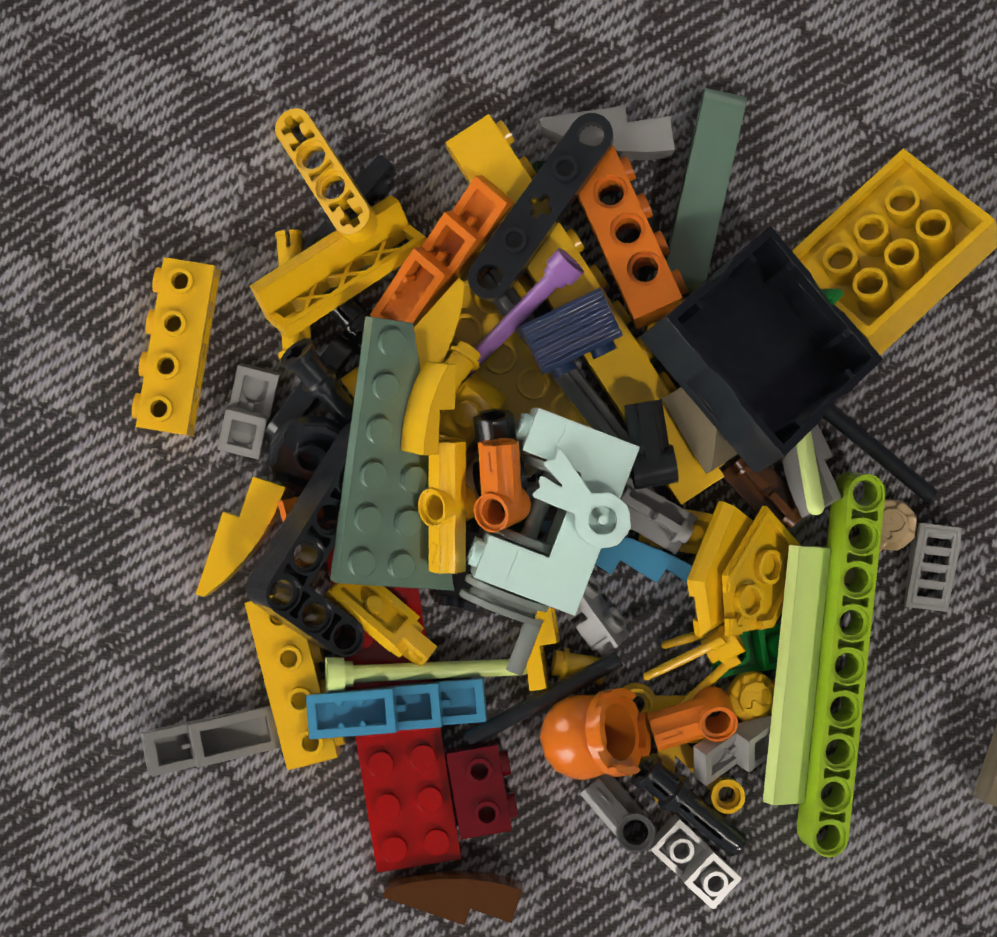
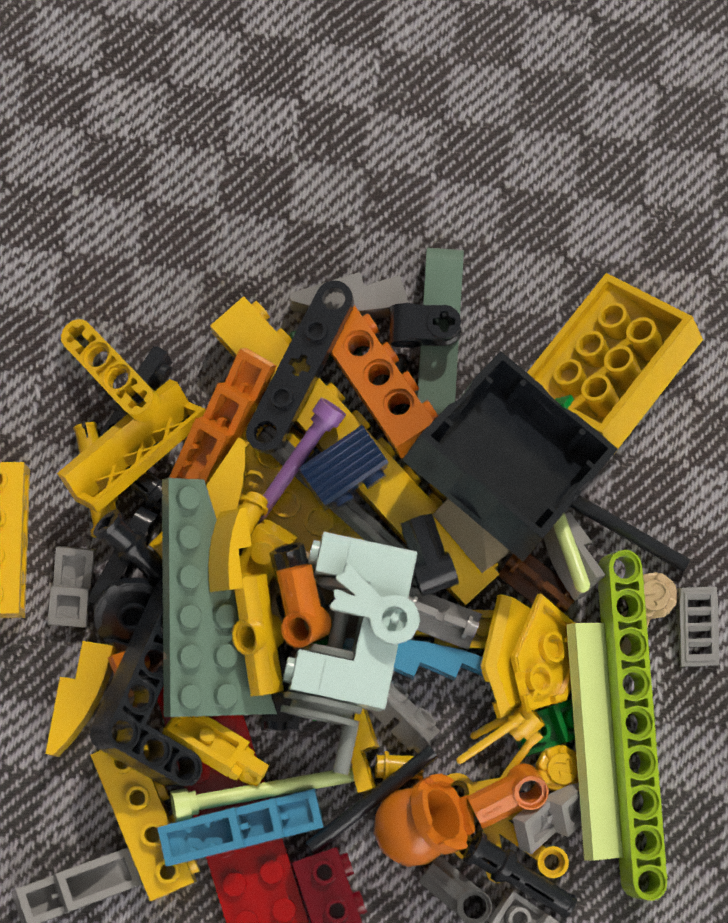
camera: 10 degrees left, 10 degrees down
(677, 179) = (419, 325): none -> black piece

